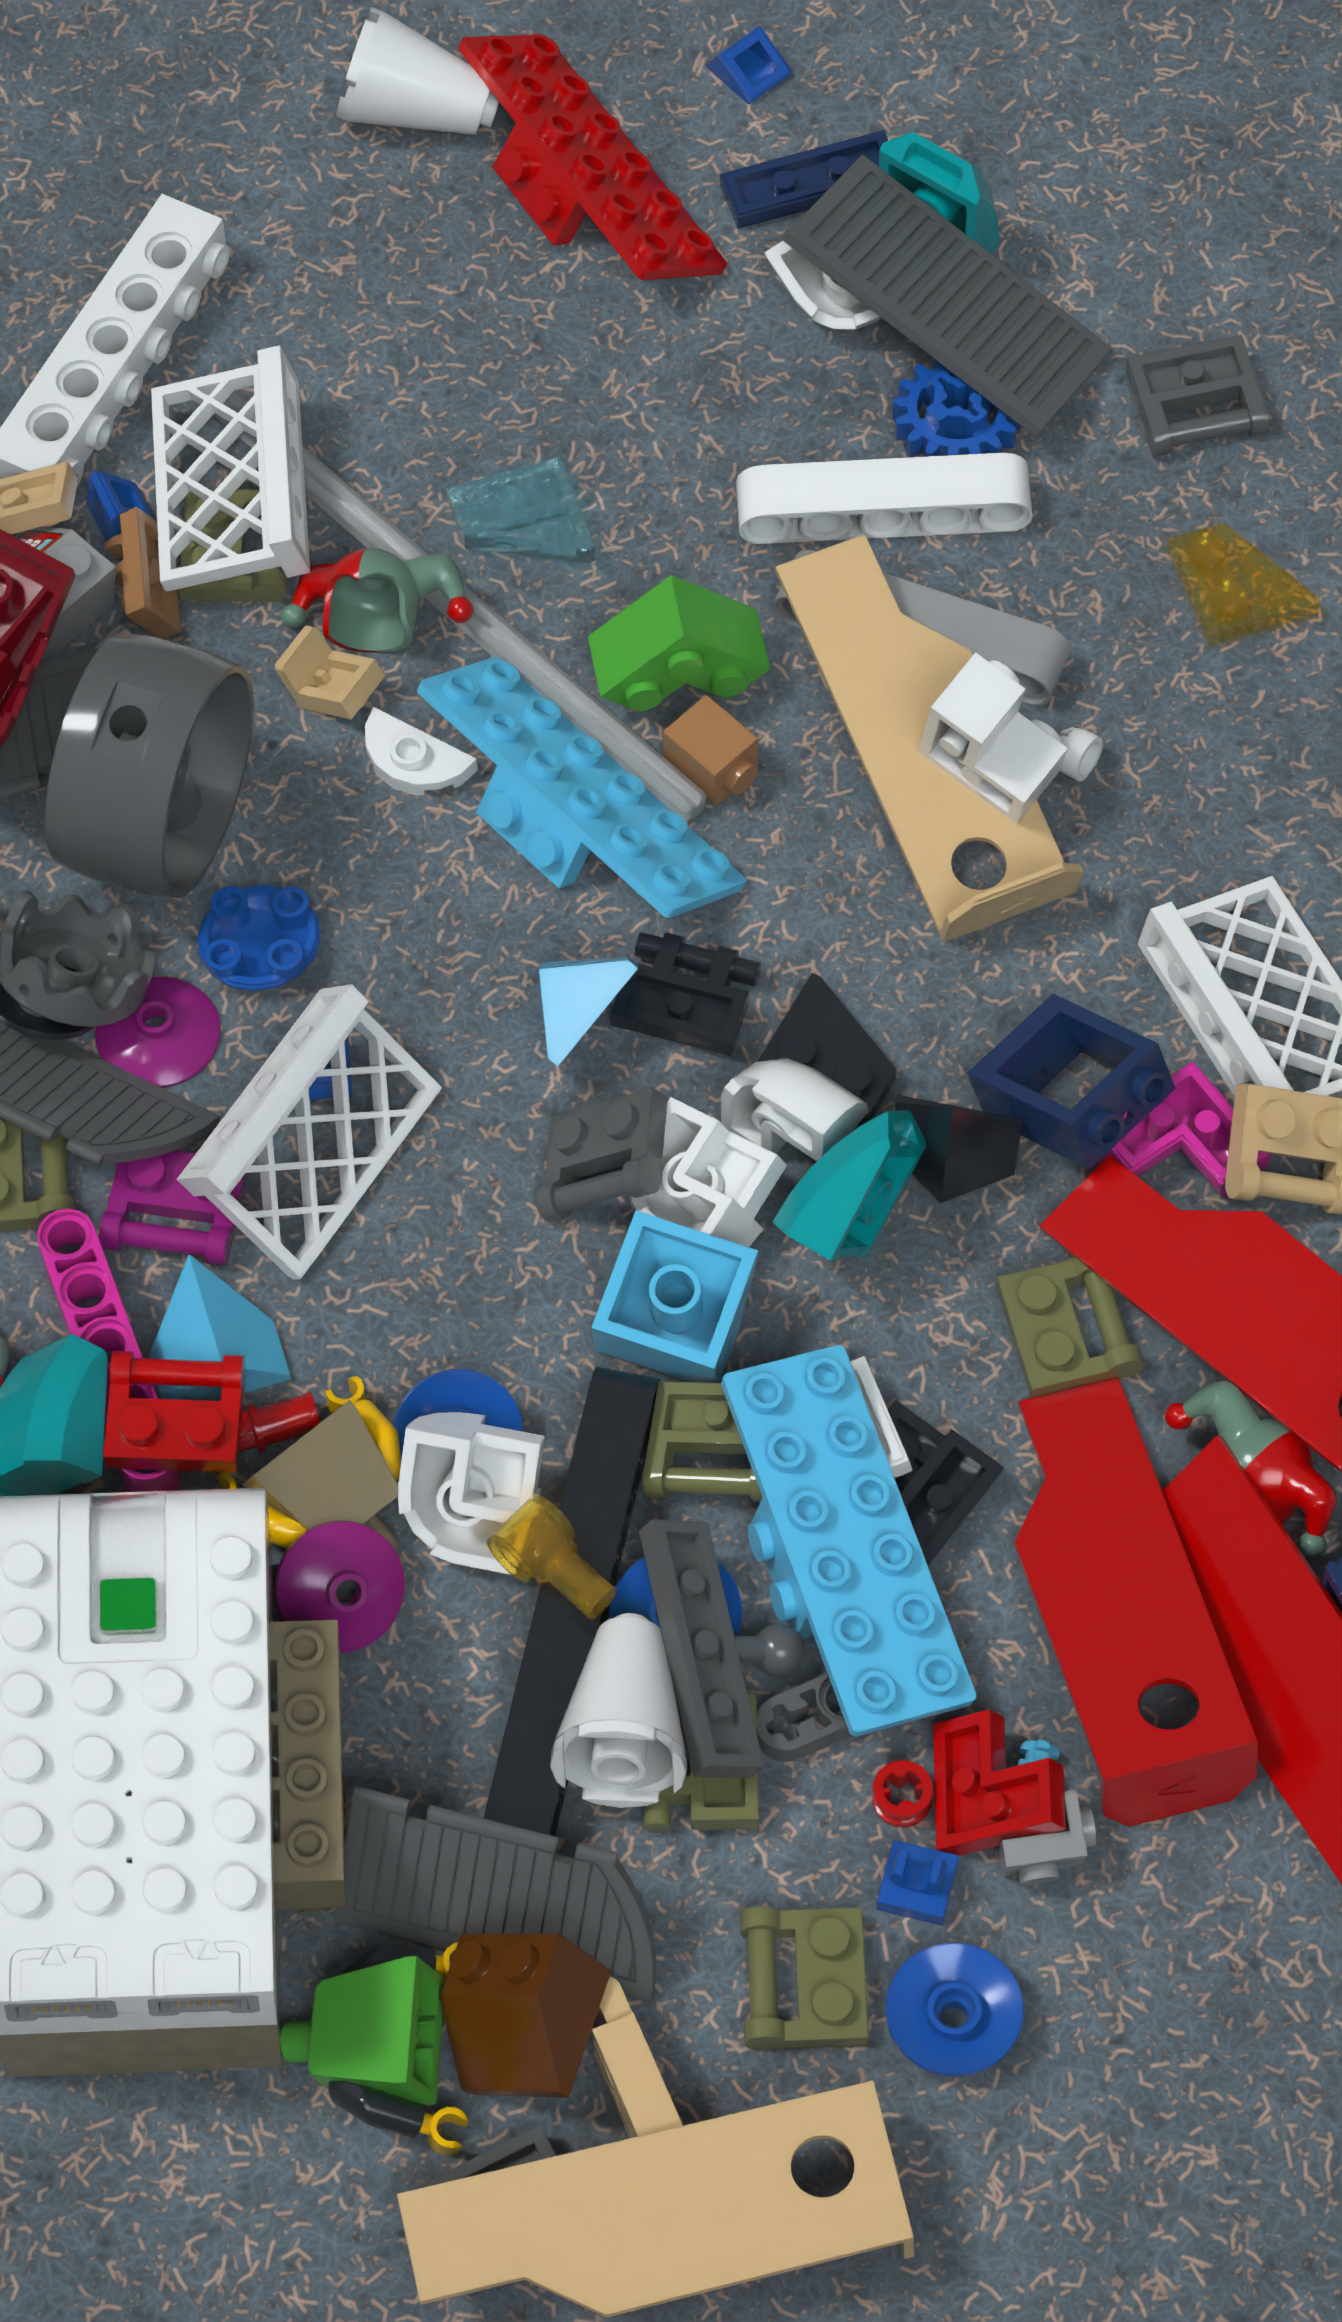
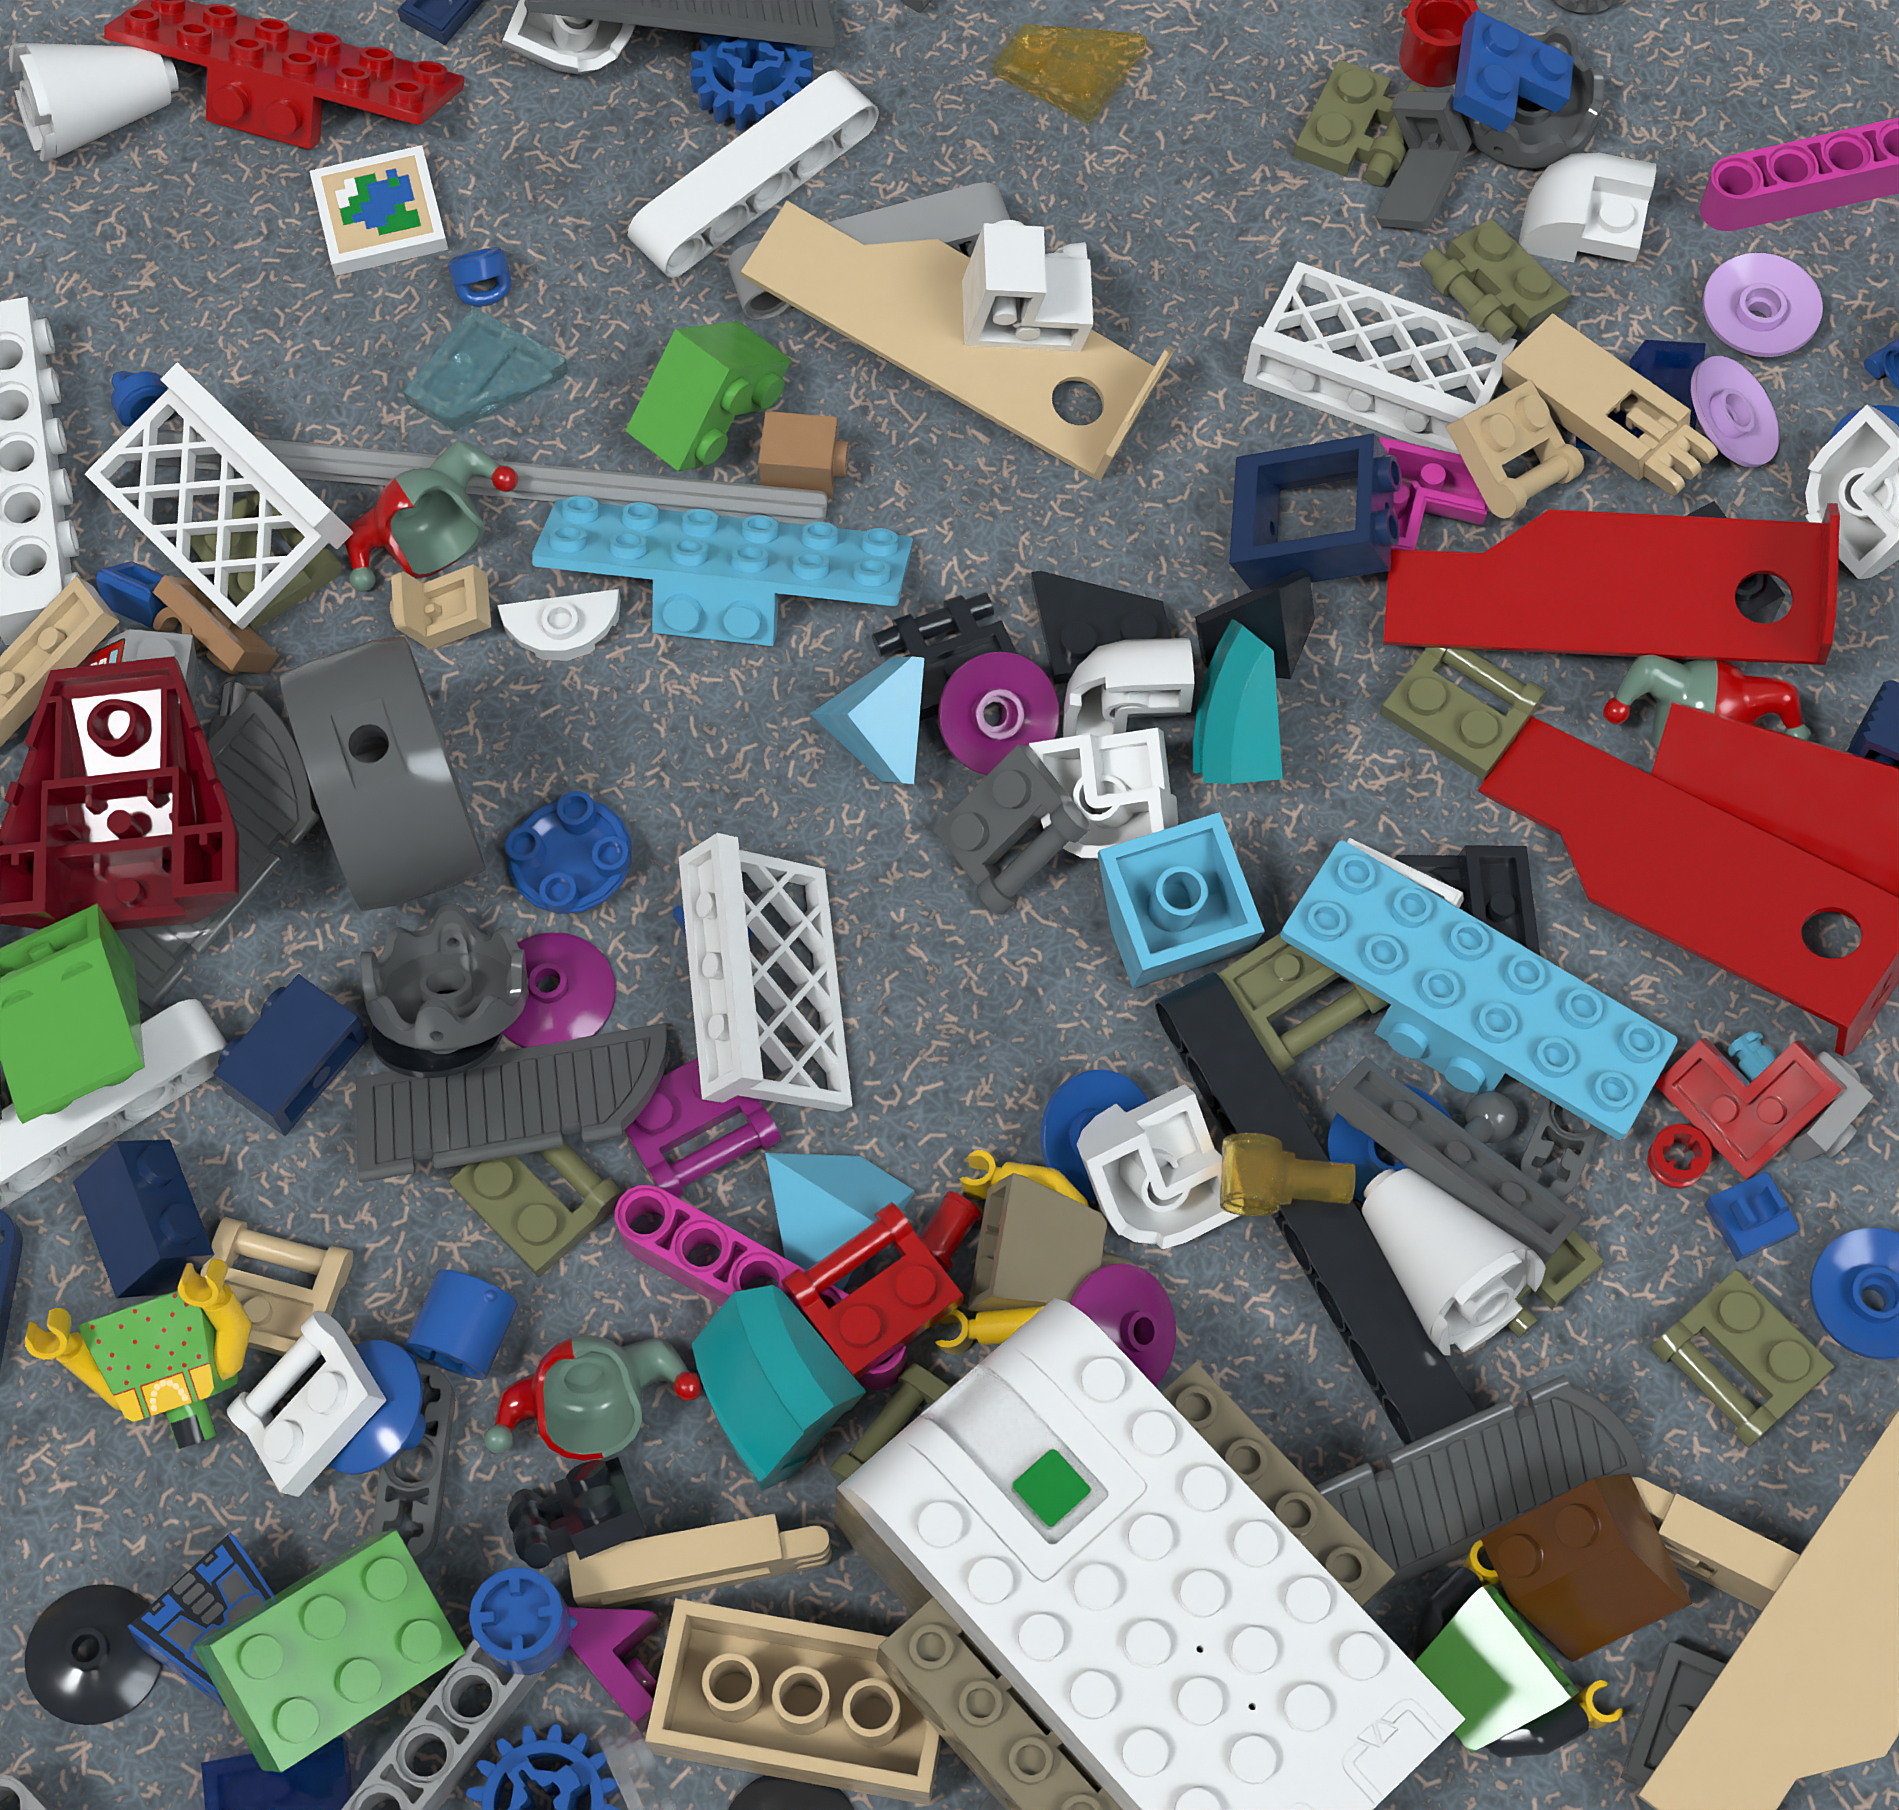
camera: 40 degrees left, 5 degrees up
(240, 349) = (135, 394): none -> blue tile
(562, 330) = (378, 210): none -> tile
(595, 428) = (477, 267): none -> blue tile
(685, 1026) = (1024, 698): none -> magenta dish

